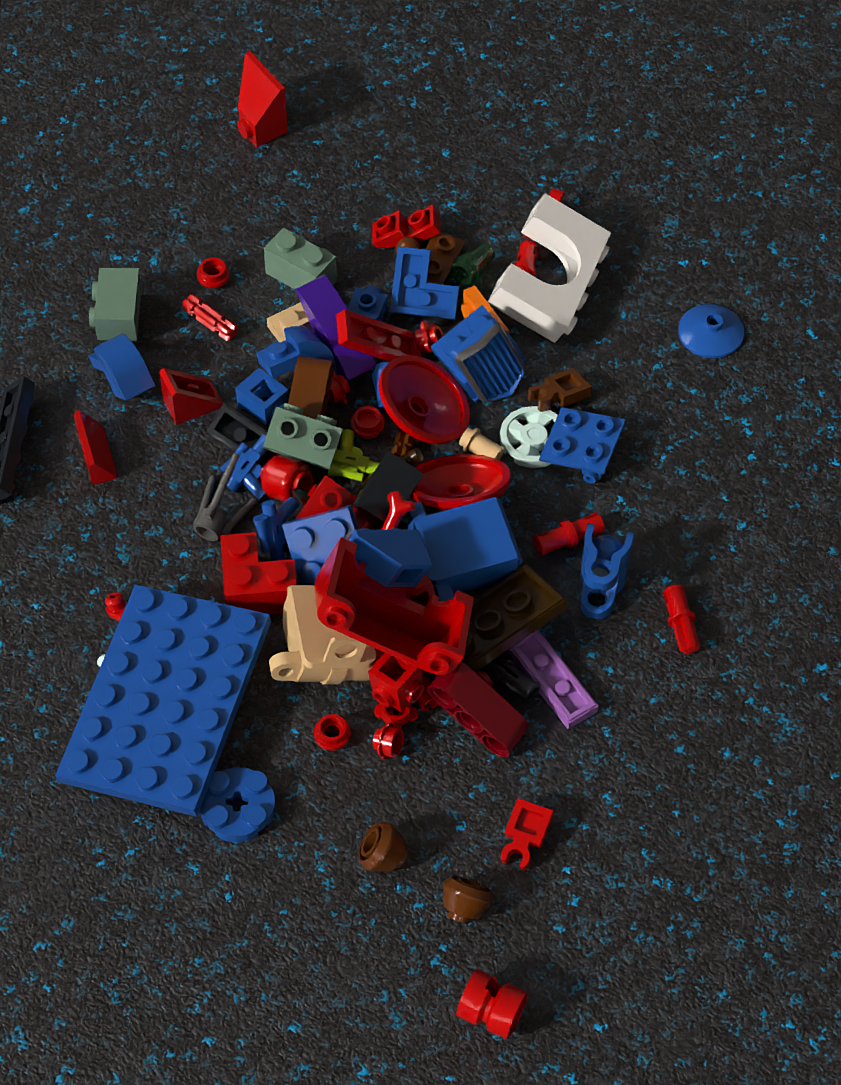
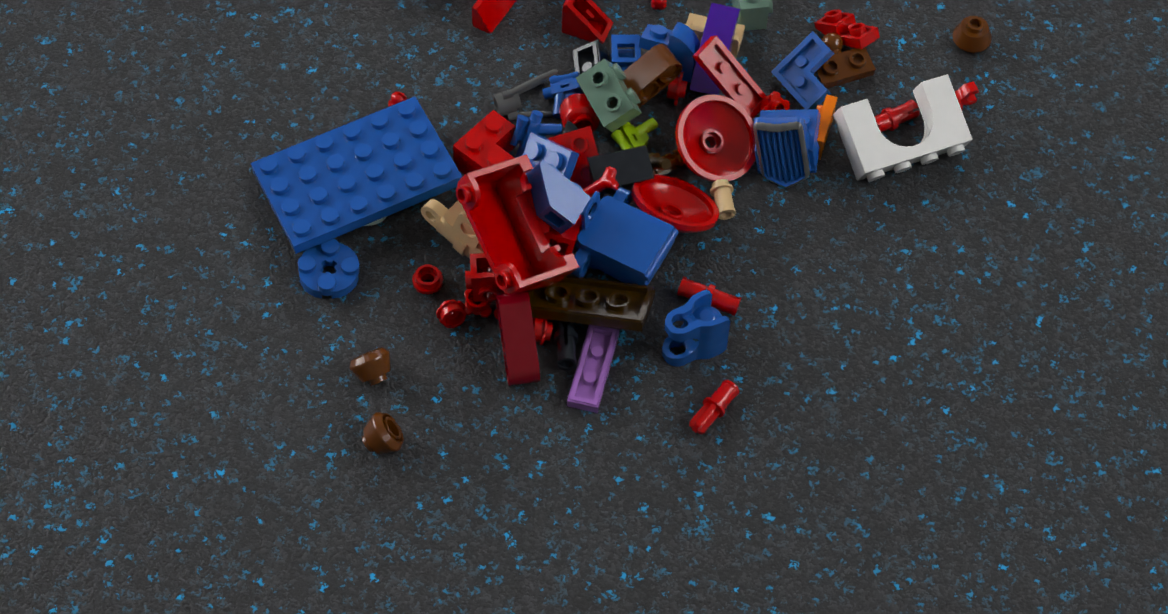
camera: 45 degrees right, 0 degrees up
(367, 422) = (667, 125): red plate -> none
(369, 302) = (756, 57): blue brick -> none
(471, 265) = (861, 87): clear green cone -> none
(492, 1004) = (323, 501): red wheel -> none
(500, 153) = (972, 34): none -> reddish brown cone
(527, 828) = (466, 432): red plate -> none
(531, 436) = (764, 222): light aqua piece -> none
(562, 387) = (818, 208): reddish brown plate -> none
(583, 442) = (788, 251): blue hinge -> none
(711, 331) = (967, 269): blue dish -> none

